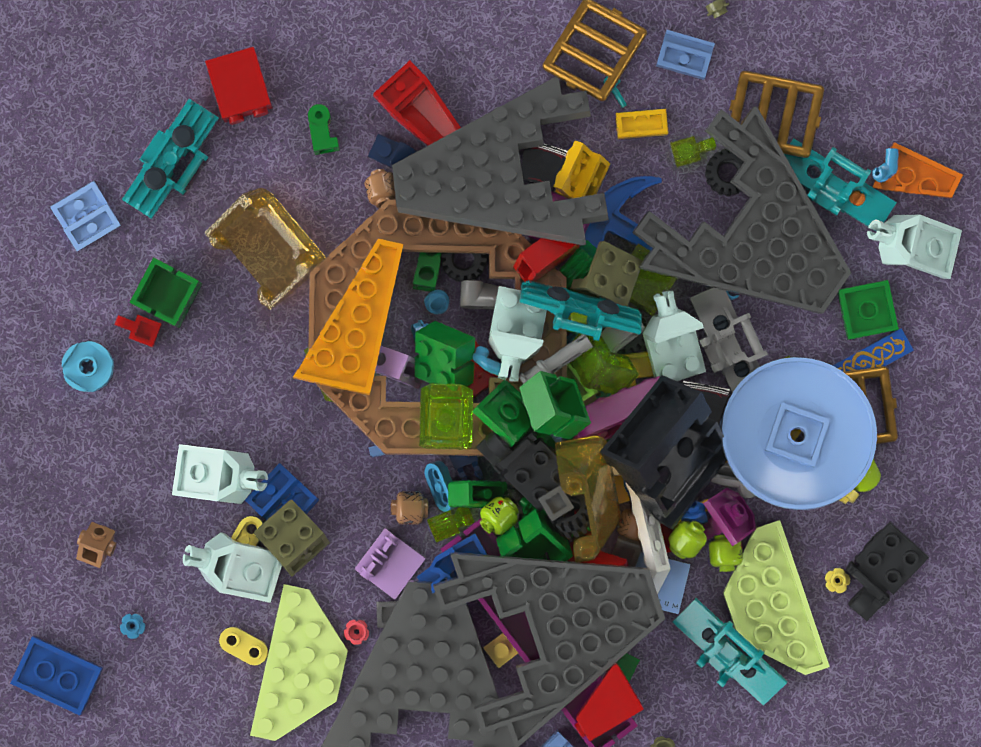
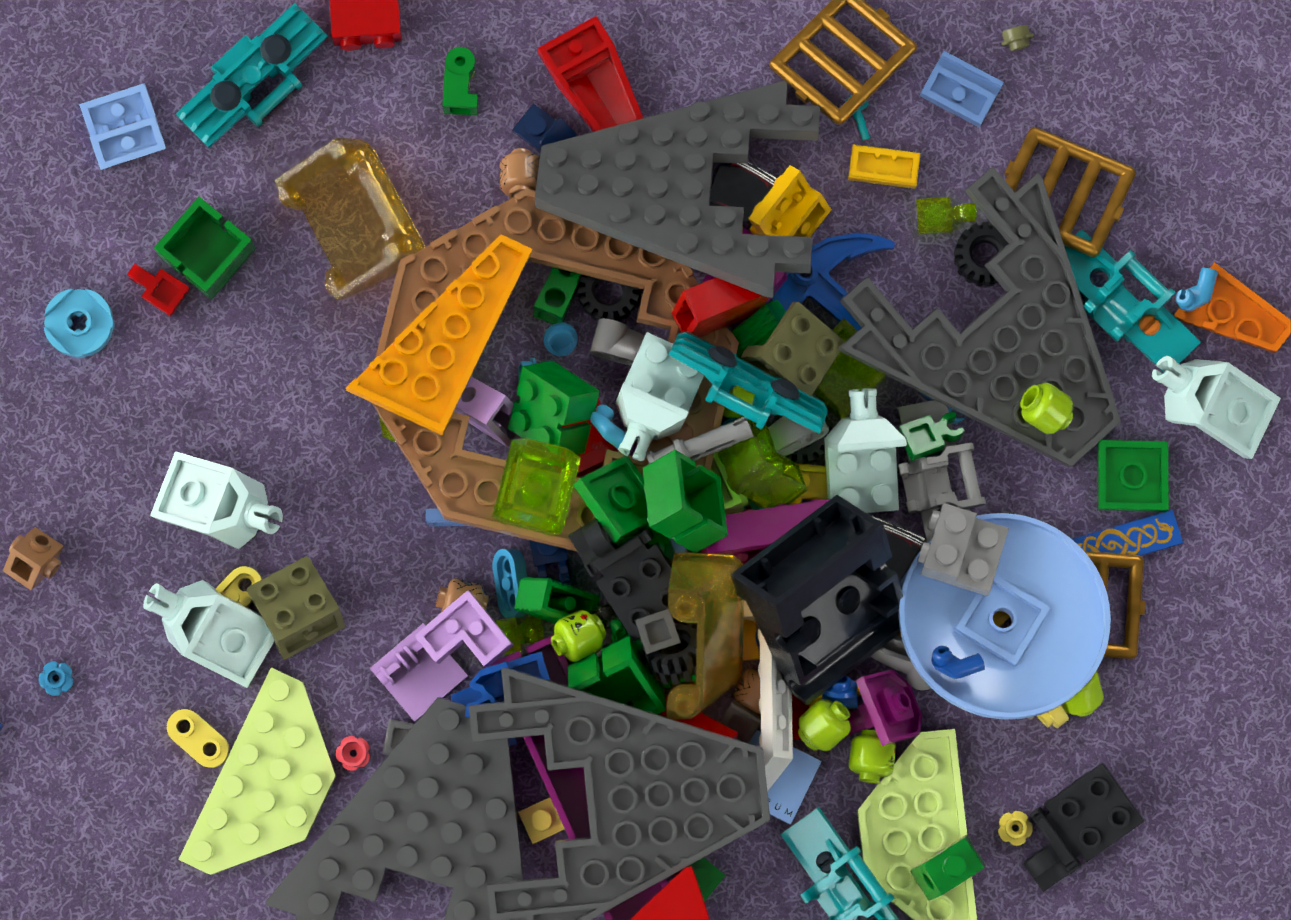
camera: 10 degrees right, 5 degrees down
(279, 486) = (293, 538): blue slope -> none
(415, 524) = (464, 623): none -> lavender plate
(715, 315) = (927, 437): none -> plate
(759, 392) = (962, 549): none -> light grey plate
(772, 479) = (952, 666): none -> blue arm
(797, 276) = (1047, 408): none -> lime head
(797, 621) = (948, 868): none -> green torso

